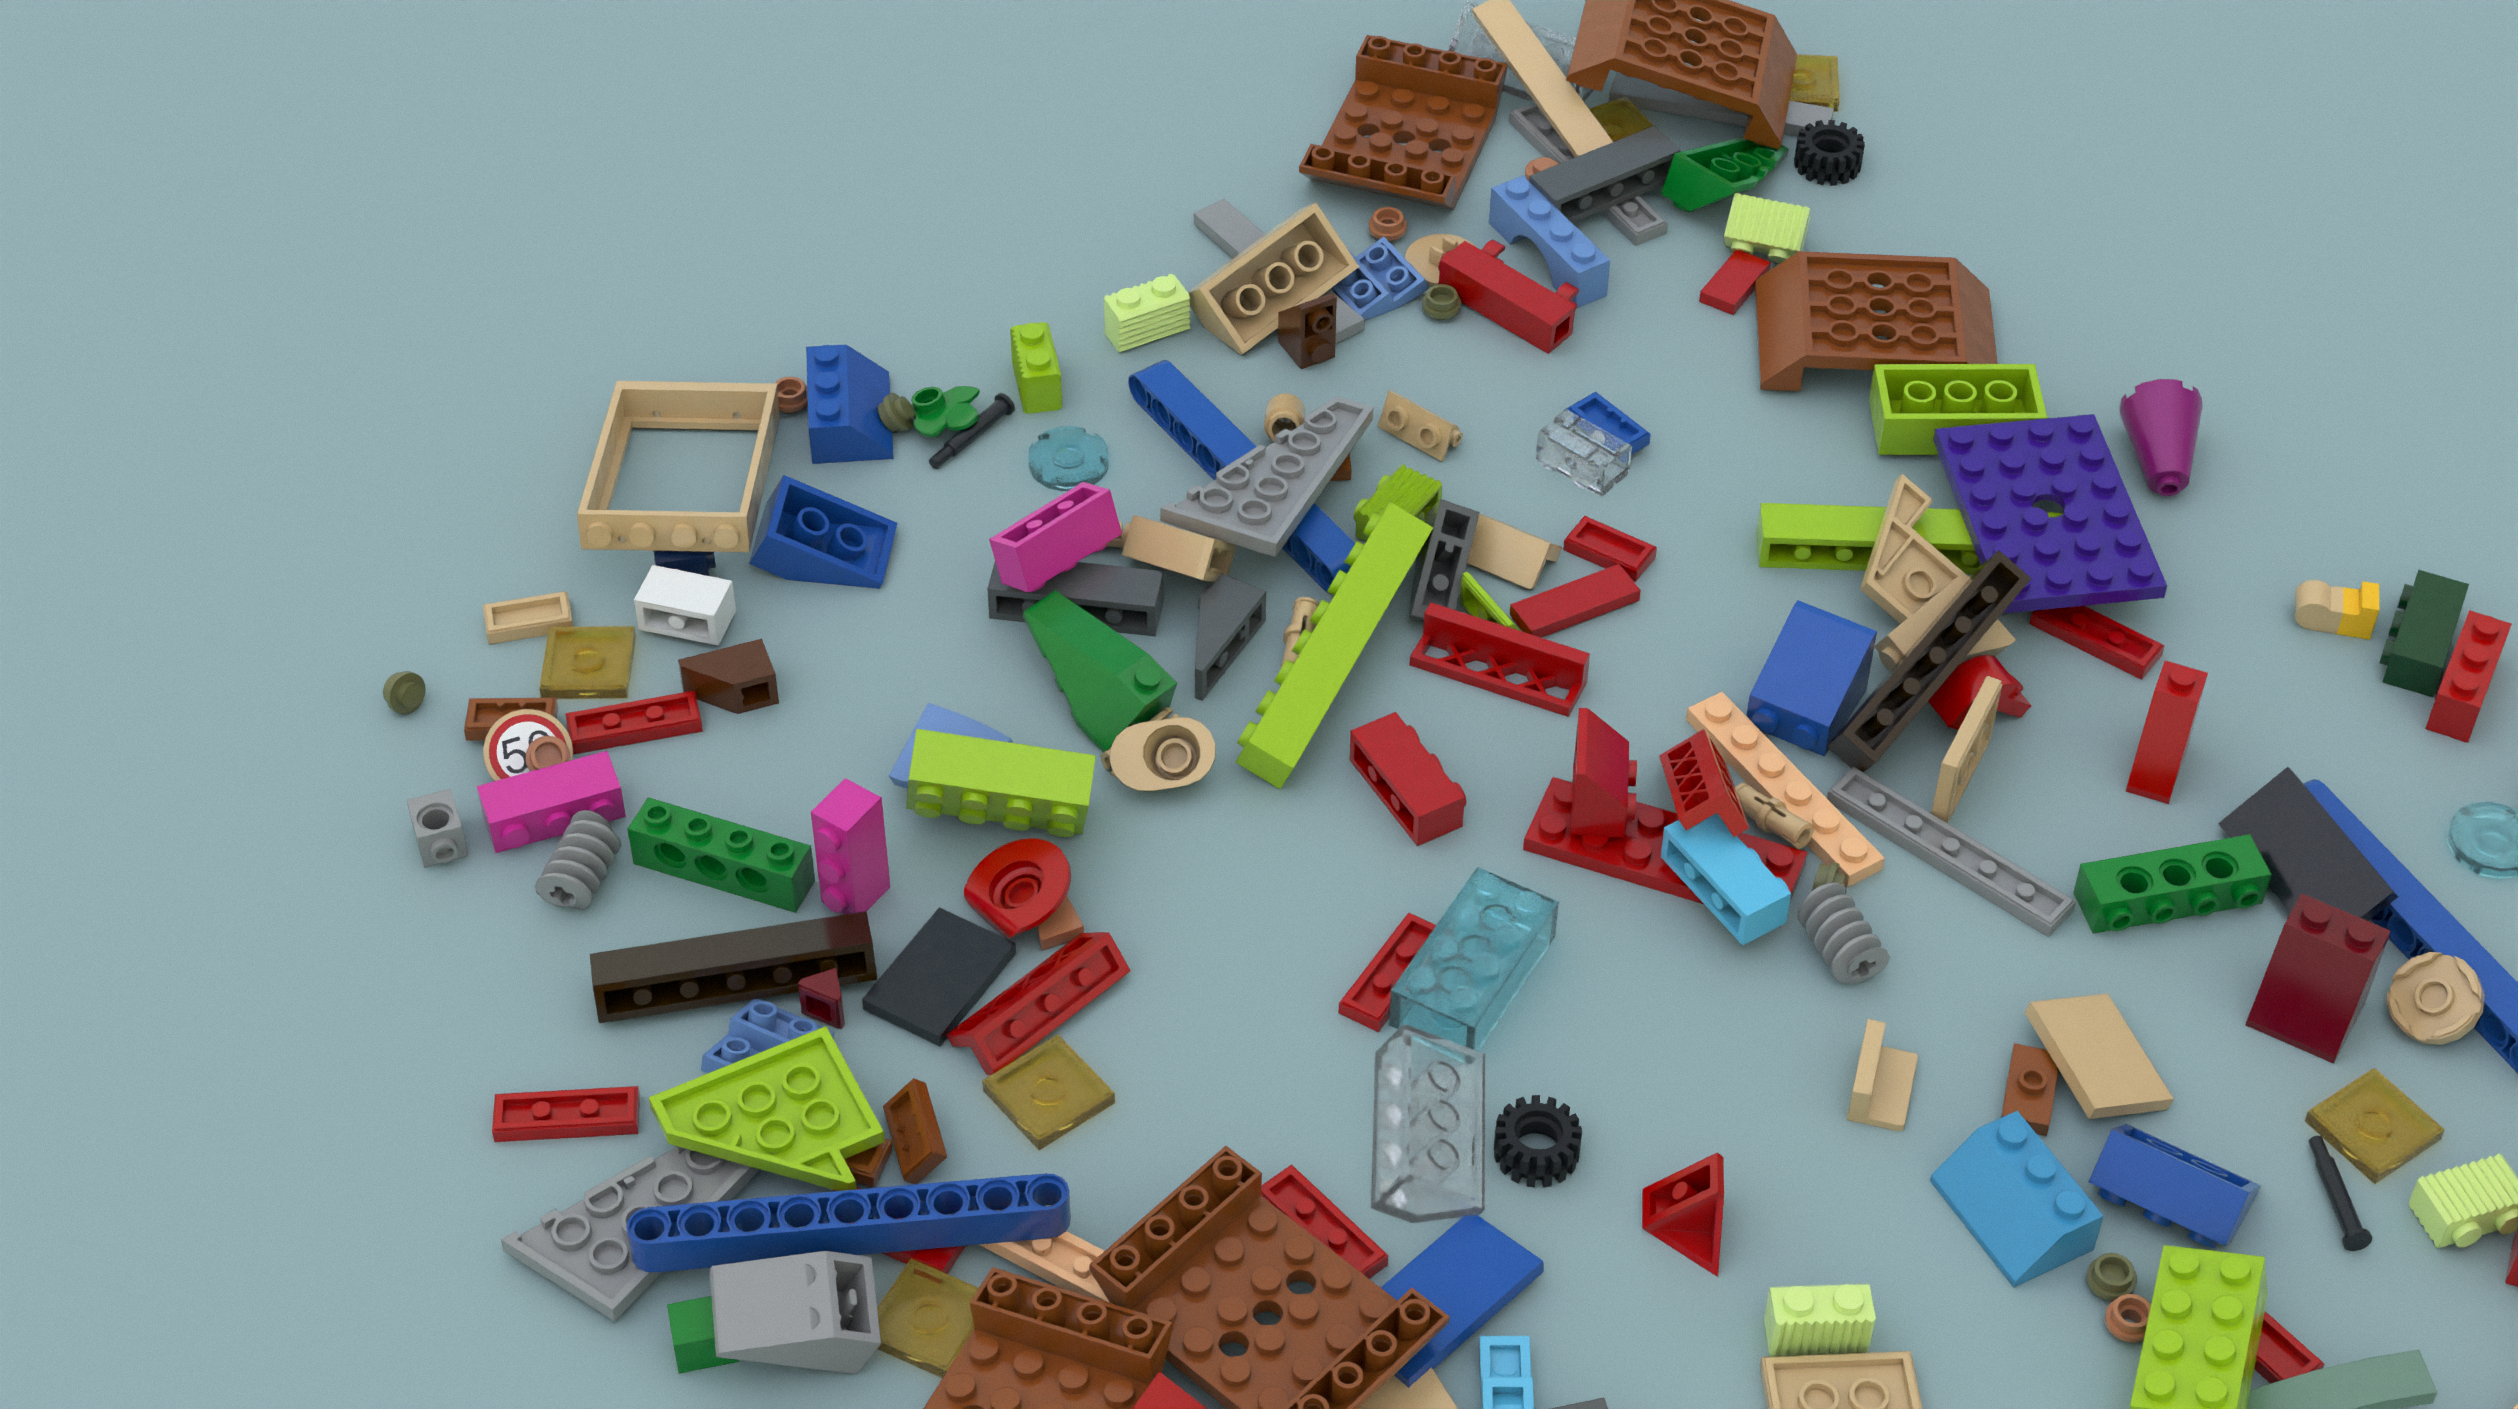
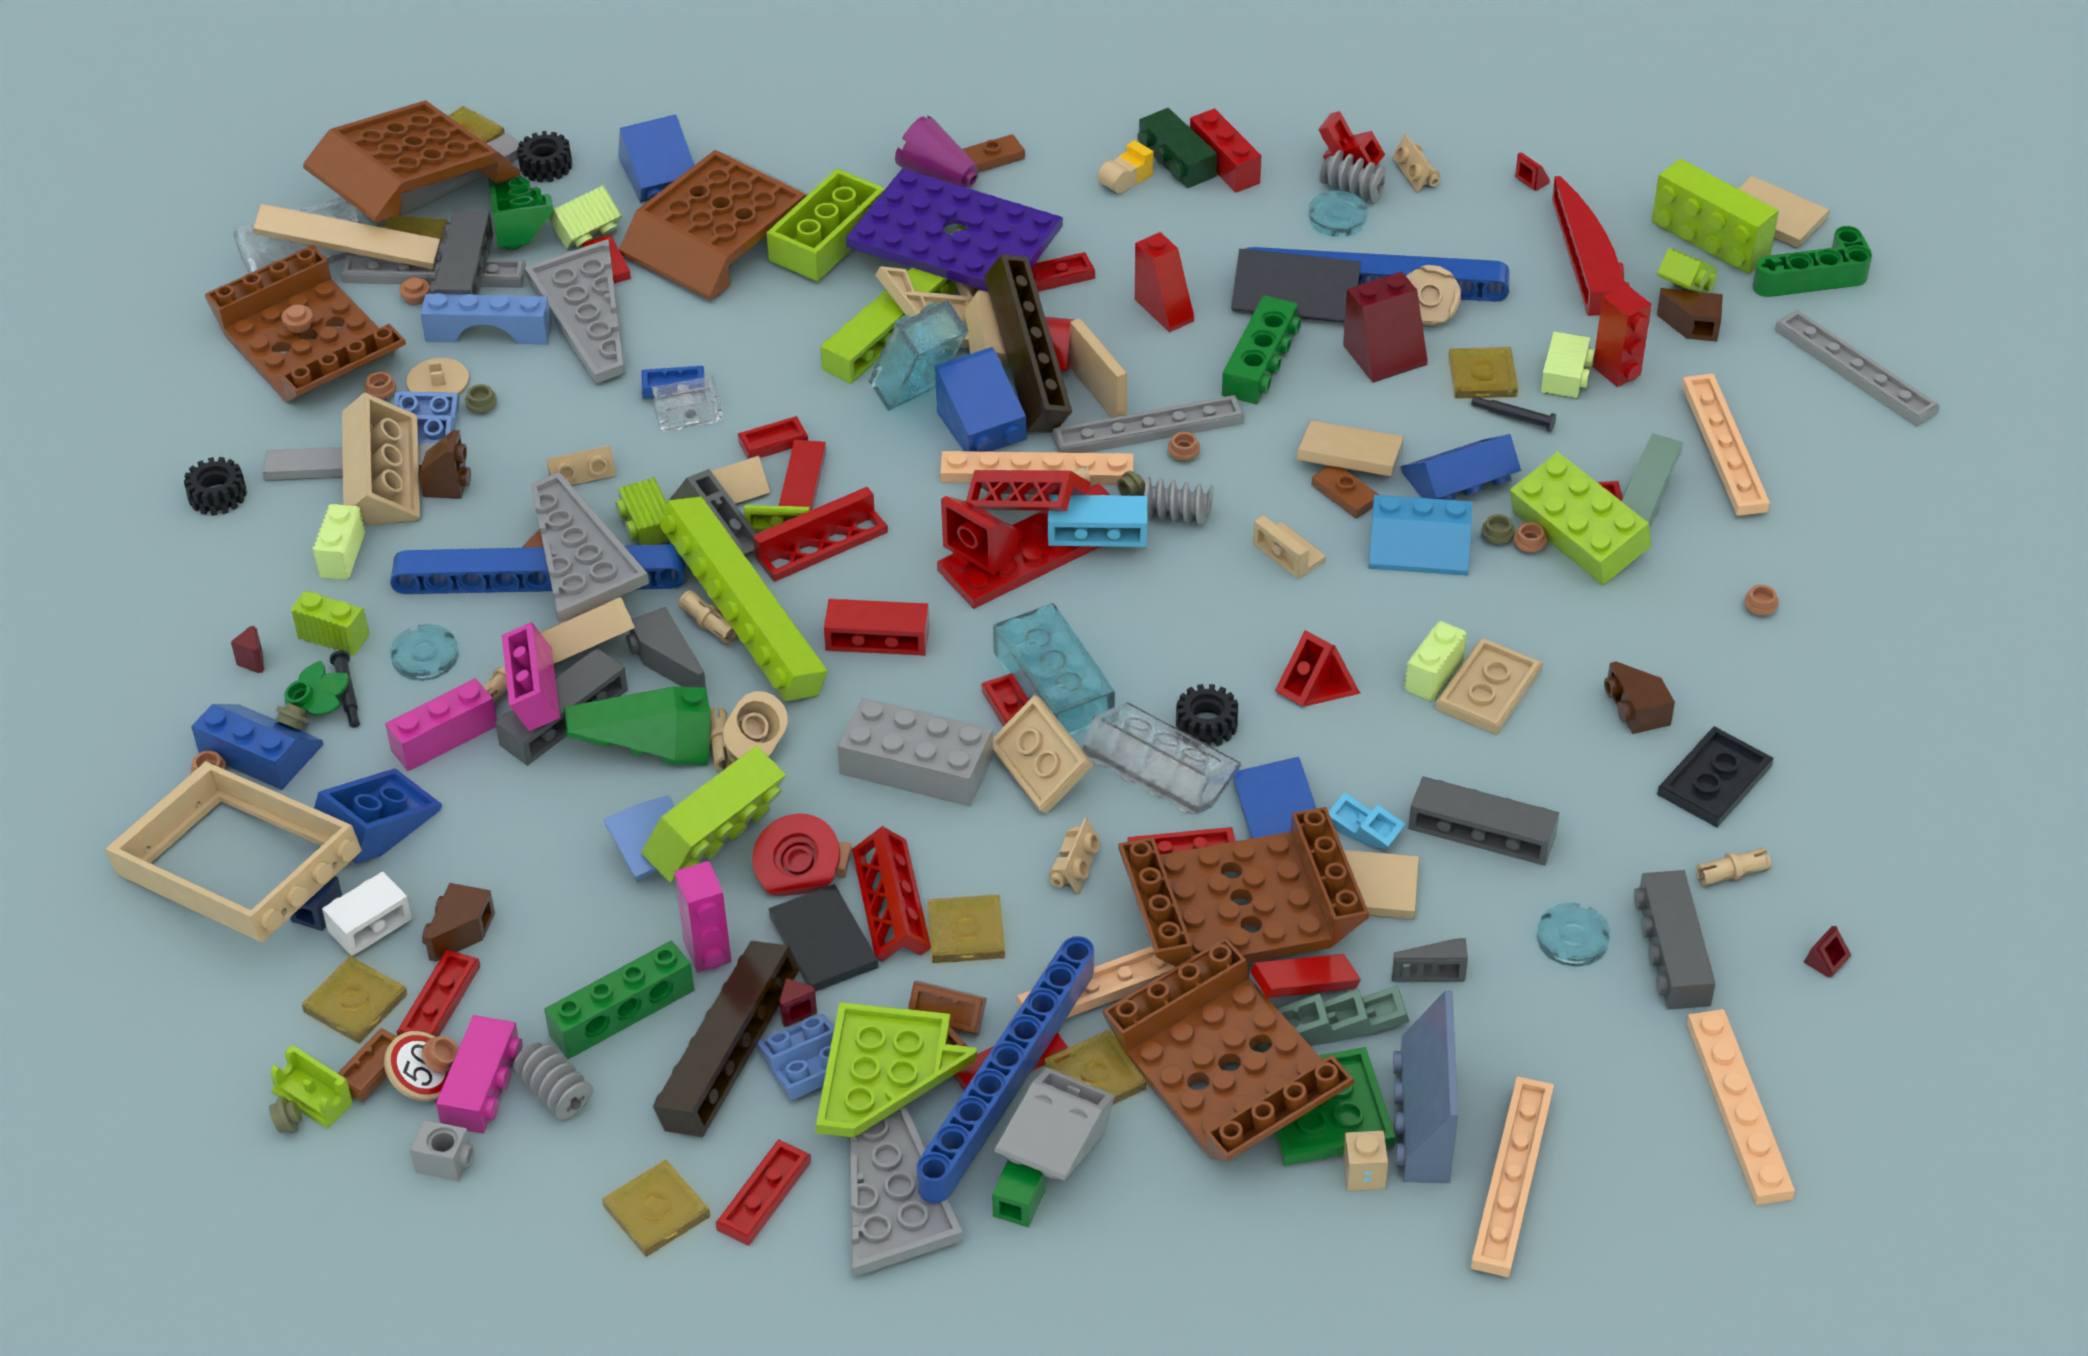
camera: 55 degrees left, 0 degrees up
(450, 692) = (313, 1086): none -> lime hinge
(487, 1037) = (656, 1207): none -> clear yellow tile
(526, 617) = (274, 1015): tan tile -> none
(957, 335) = (248, 650): none -> dark red slope
(961, 515) = (441, 724): none -> dark pink brick
(1145, 193) = (217, 498): none -> black tyre
(1239, 1130) = (1076, 857): none -> tan hinge
(1252, 908) = (915, 751): none -> light grey brick
(1283, 412) = (513, 523): tan brick -> none
(1335, 1016) = (1041, 754): none -> tan tile
(1406, 114) = (297, 318): none -> nougat plate
(1509, 296) = (514, 363): red brick -> none
(1648, 296) = (584, 305): none -> light grey wing
(1793, 564) = (914, 350): none -> clear light blue brick
(1910, 220) = (653, 155): none -> blue slope
(1944, 898) = (1184, 446): none -> nougat plate
(2236, 484) = (995, 152): none -> dark orange plate

